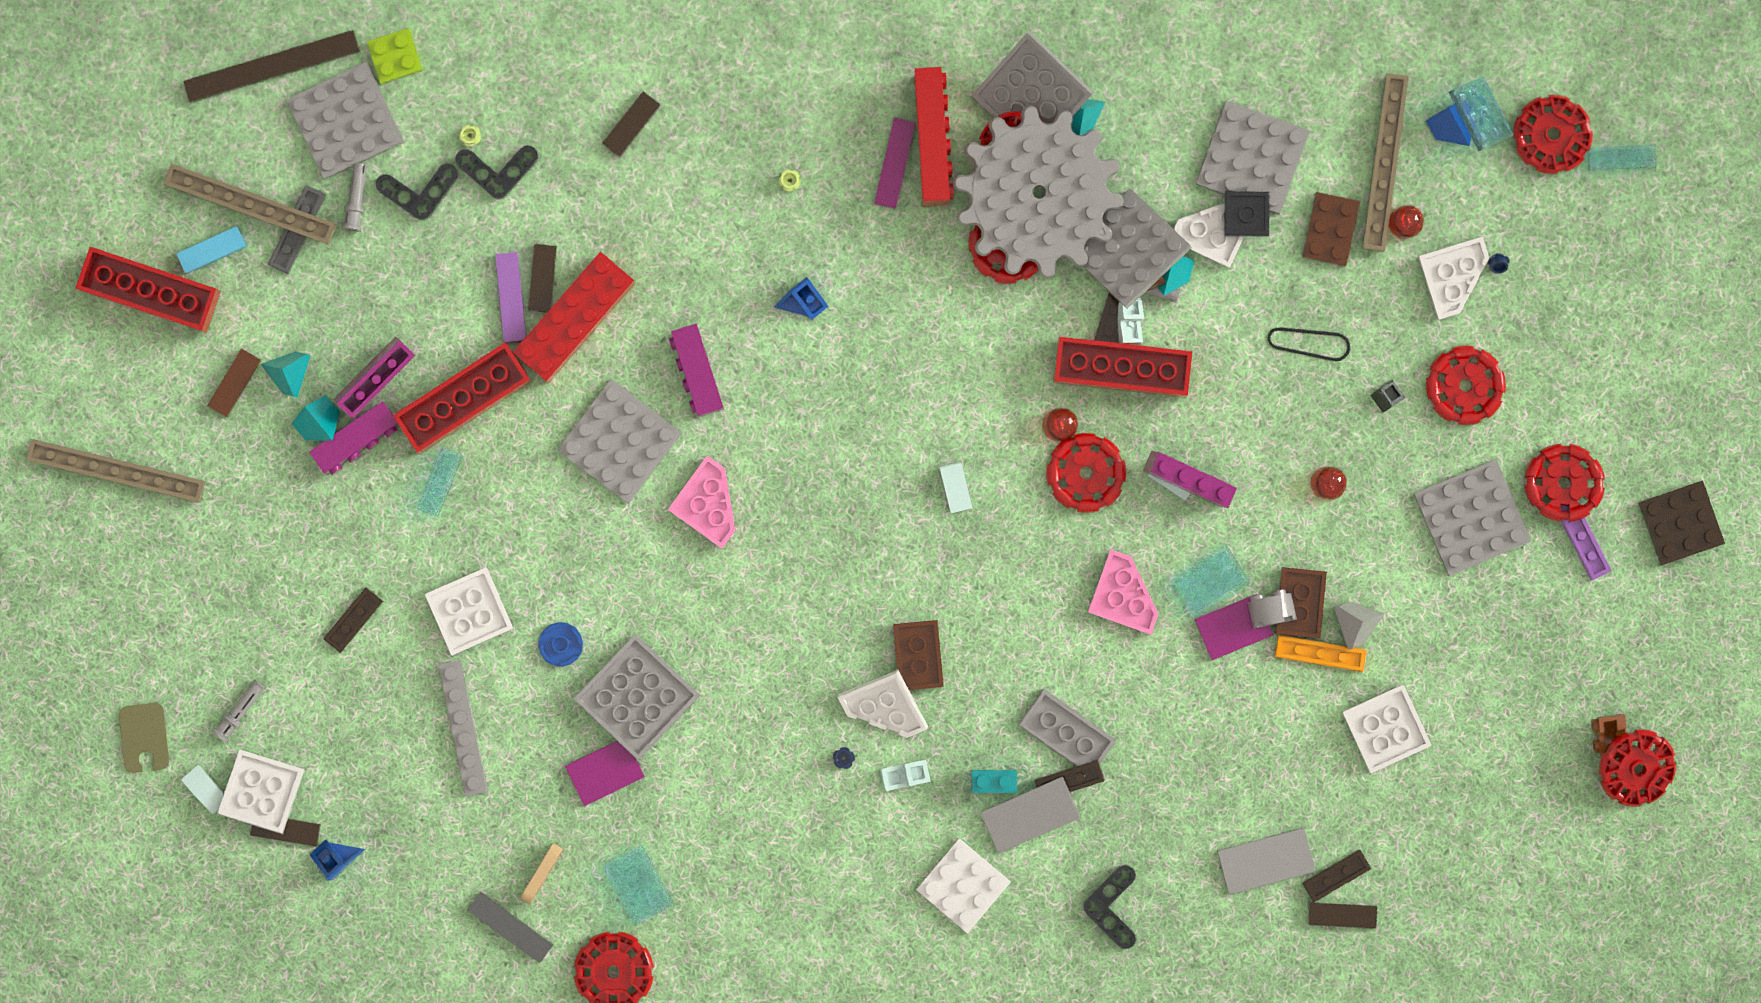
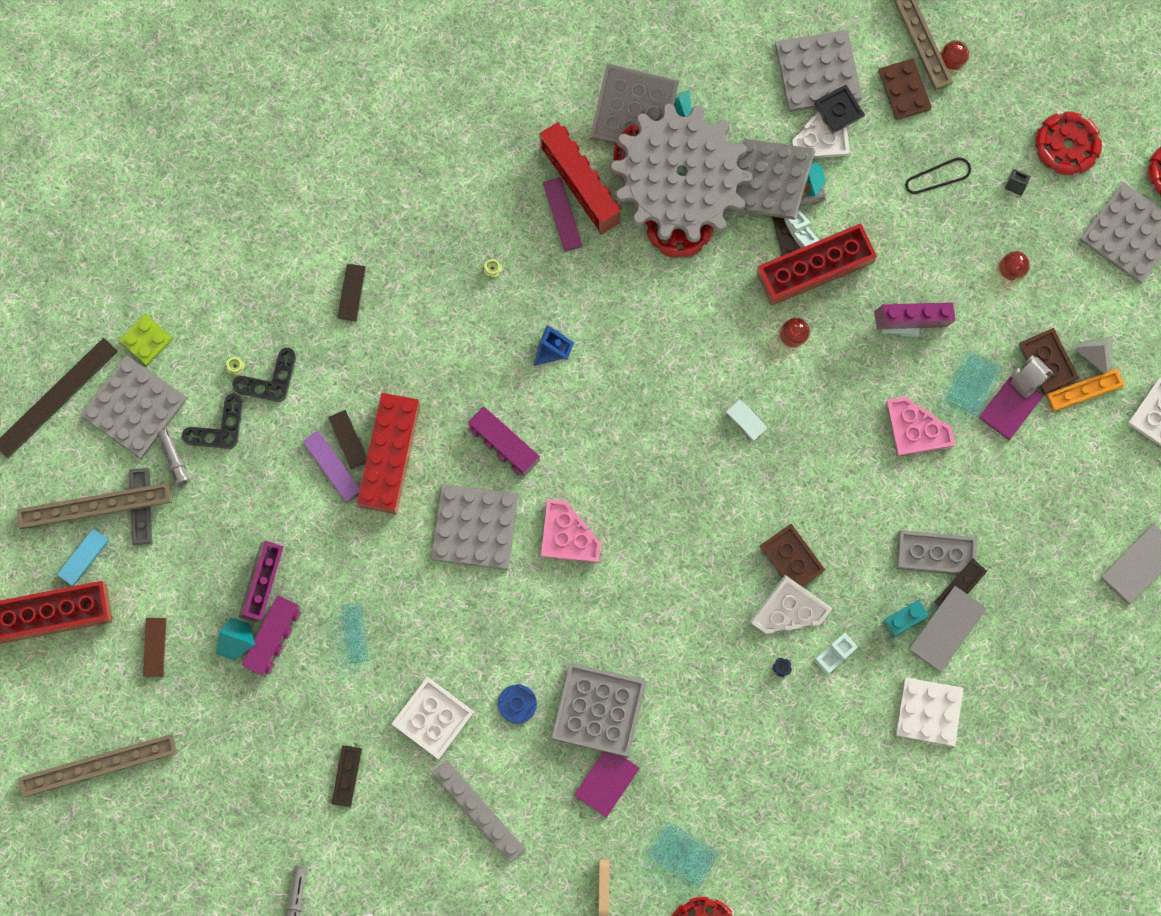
camera: 30 degrees left, 10 degrees down
(288, 372) = (192, 615): teal slope -> none
(462, 398) = (337, 559): red brick -> none
(1082, 486) = (838, 345): red plate -> none
(1105, 902) = (1042, 663): black beam -> none
(1453, 274) = (1011, 72): white plate -> none
(1498, 263) = (1038, 46): dark blue plate -> none

